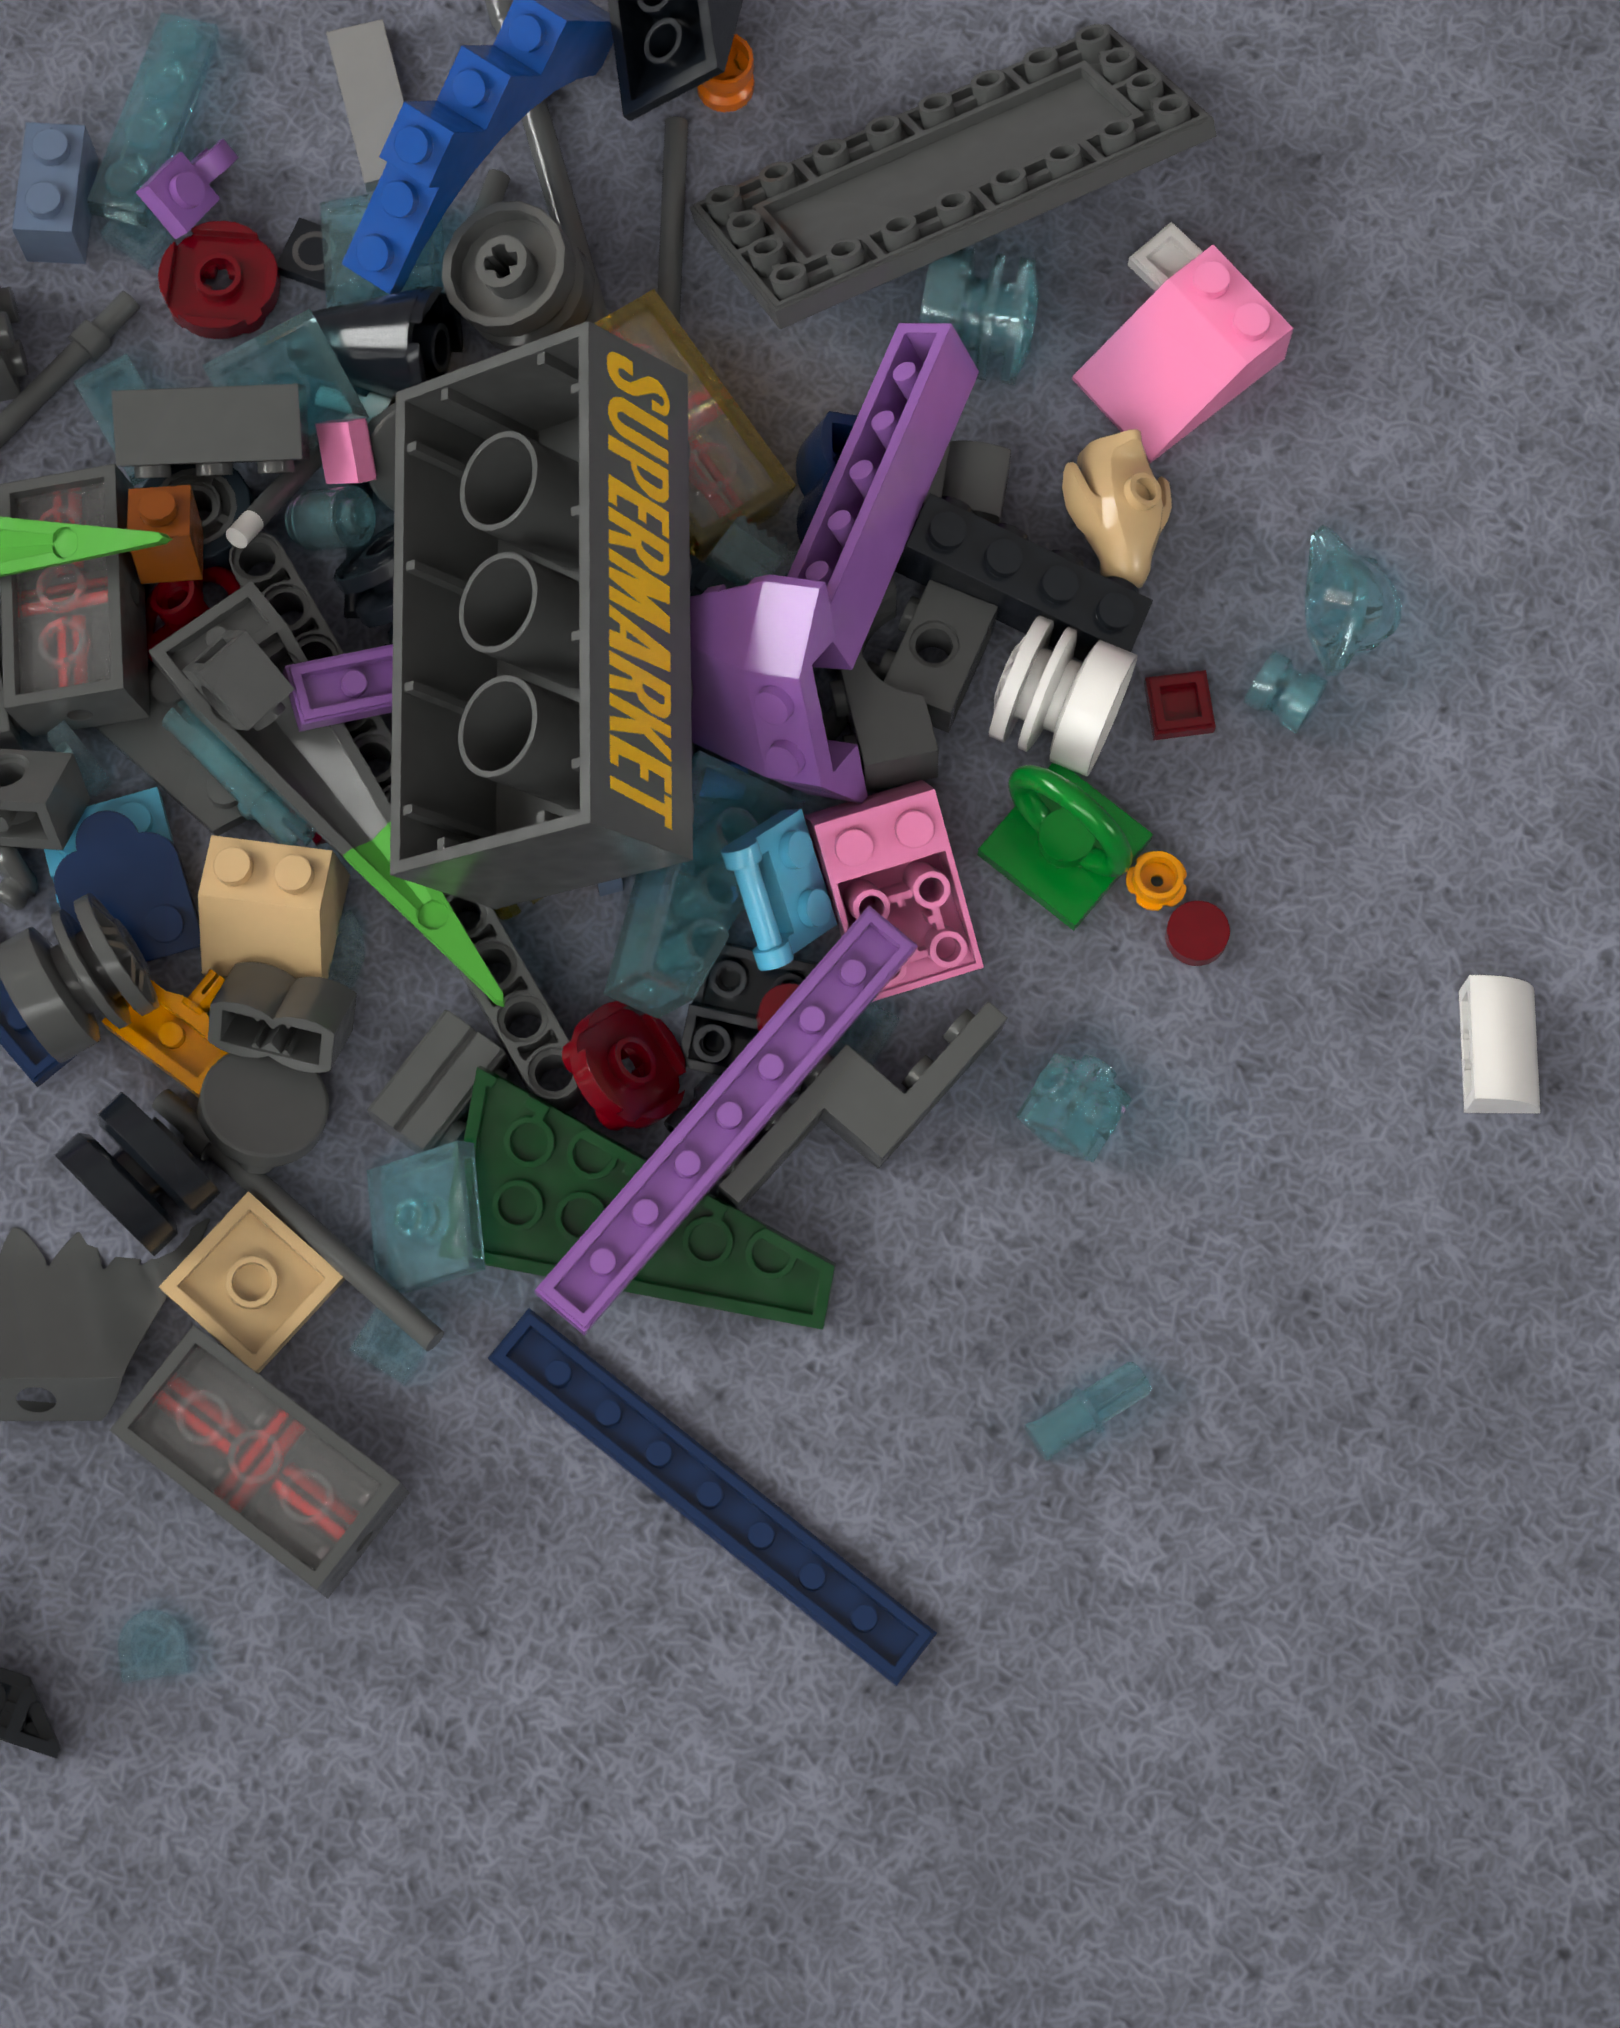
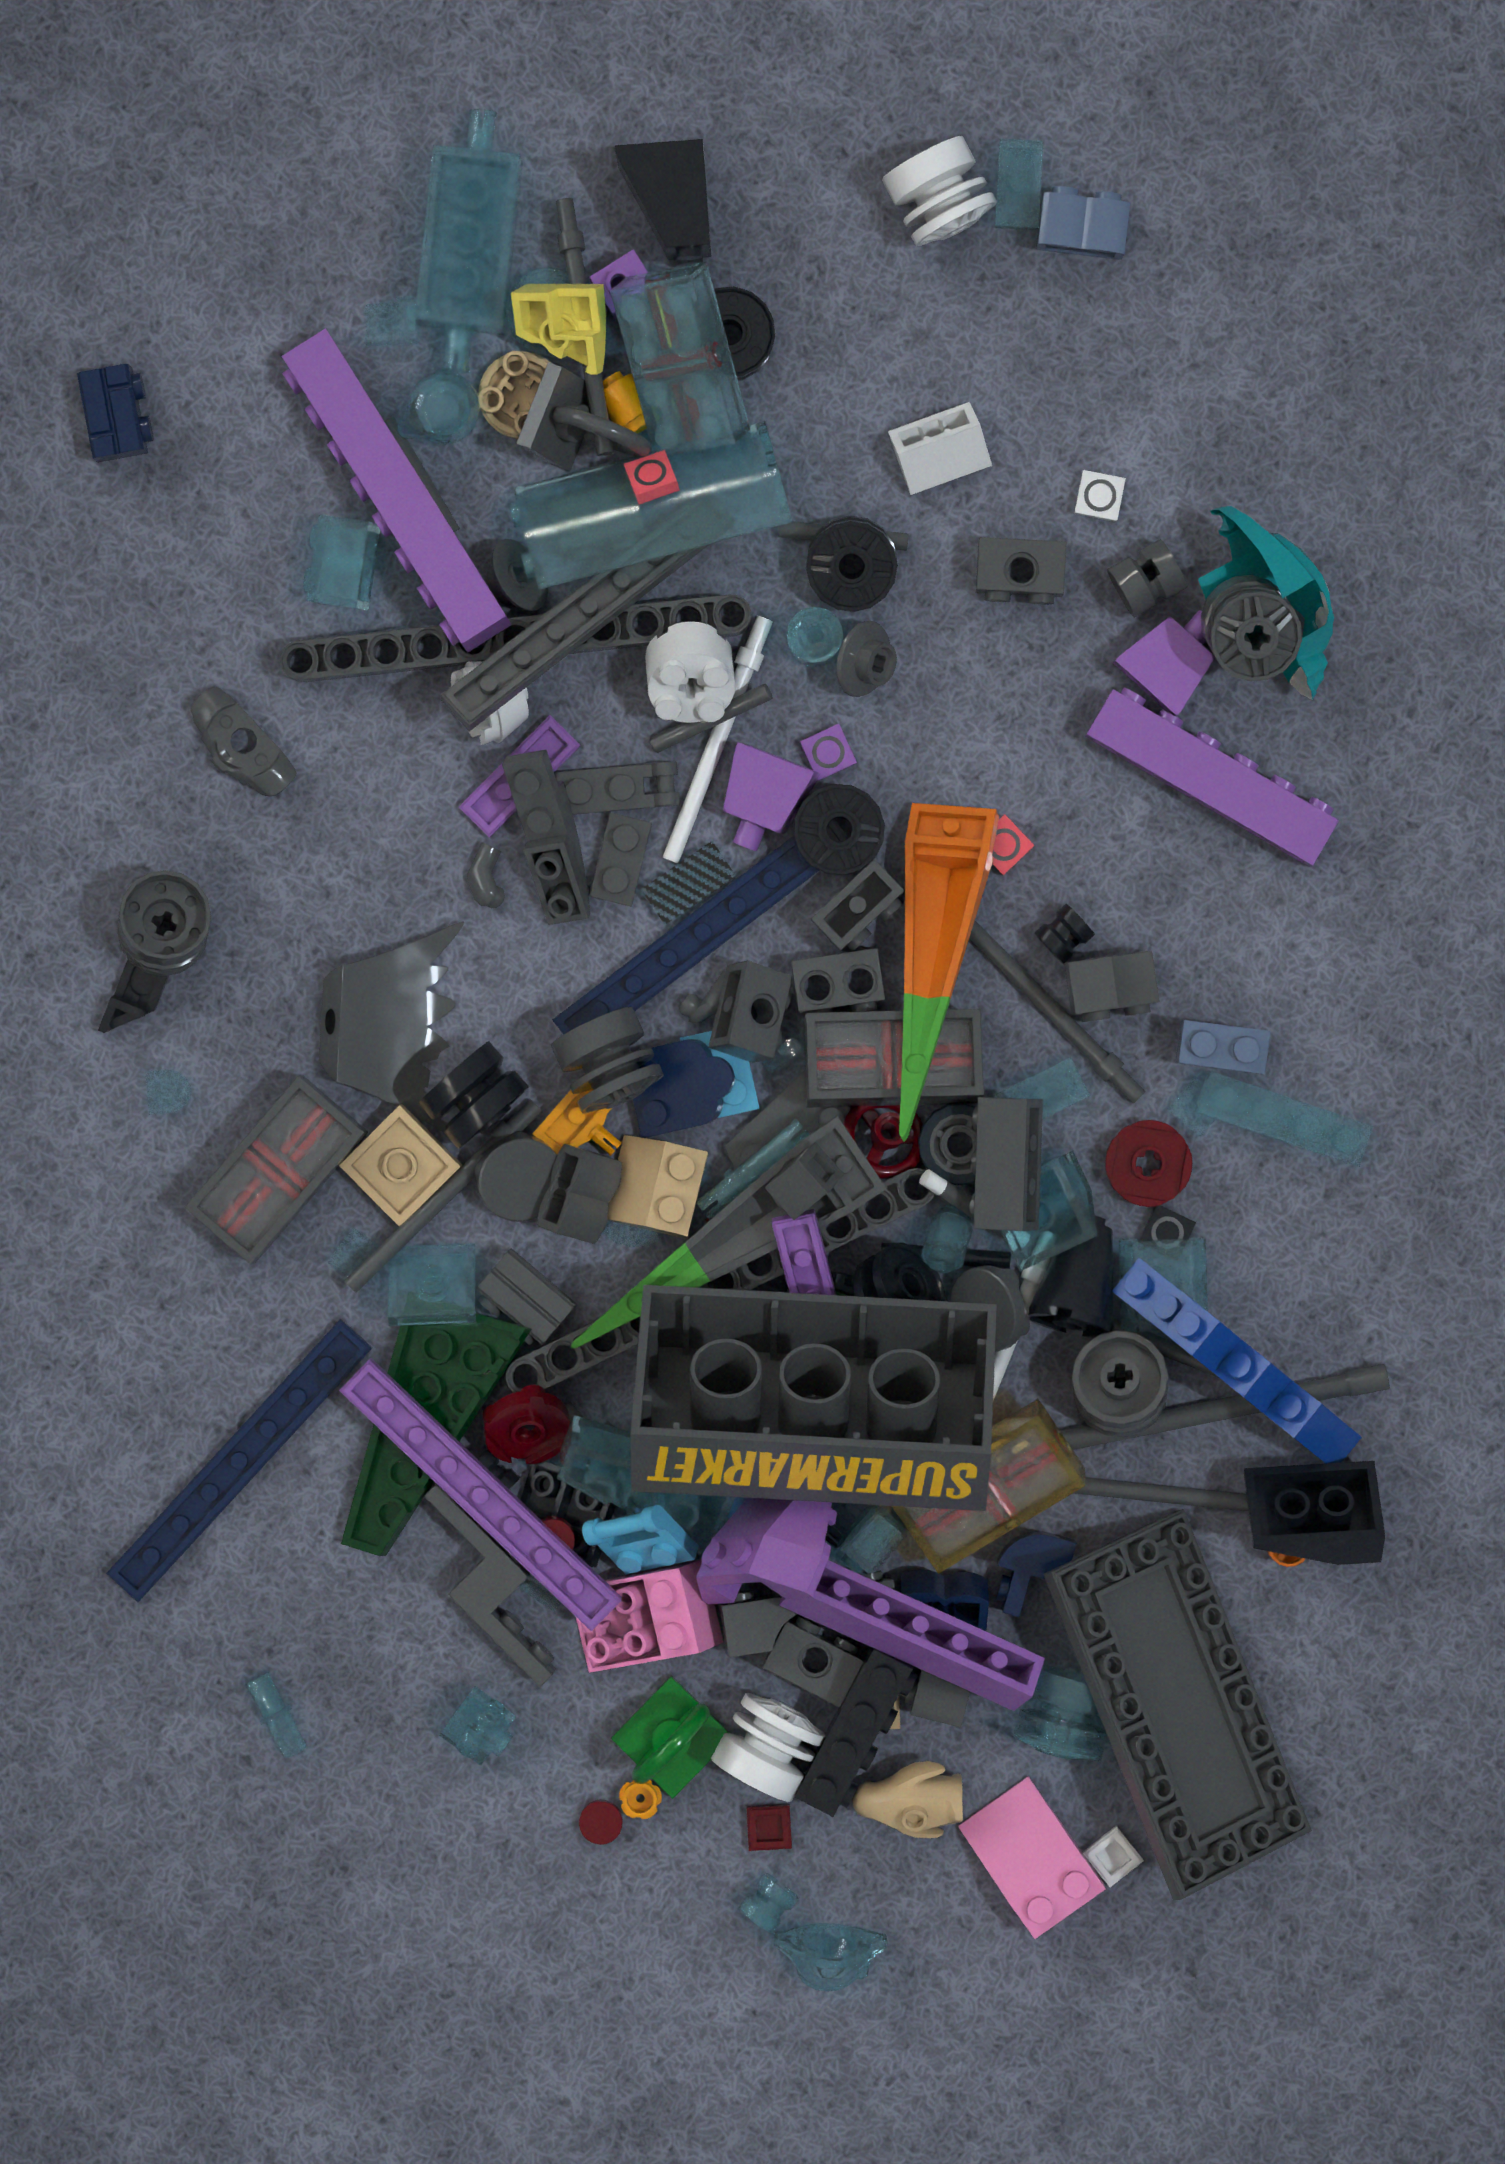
camera: 90 degrees right, 15 degrees up
(174, 513) = (931, 1131): dark orange brick -> none
(181, 189) = (1221, 1139): medium lavender plate -> none
(346, 451) = (989, 1255): bright pink tile -> none
(368, 91) = (1286, 1281): light grey tile -> none
(769, 383) = (1029, 1556): none -> dark blue brick
(1499, 1045) = (502, 2018): white brick -> none

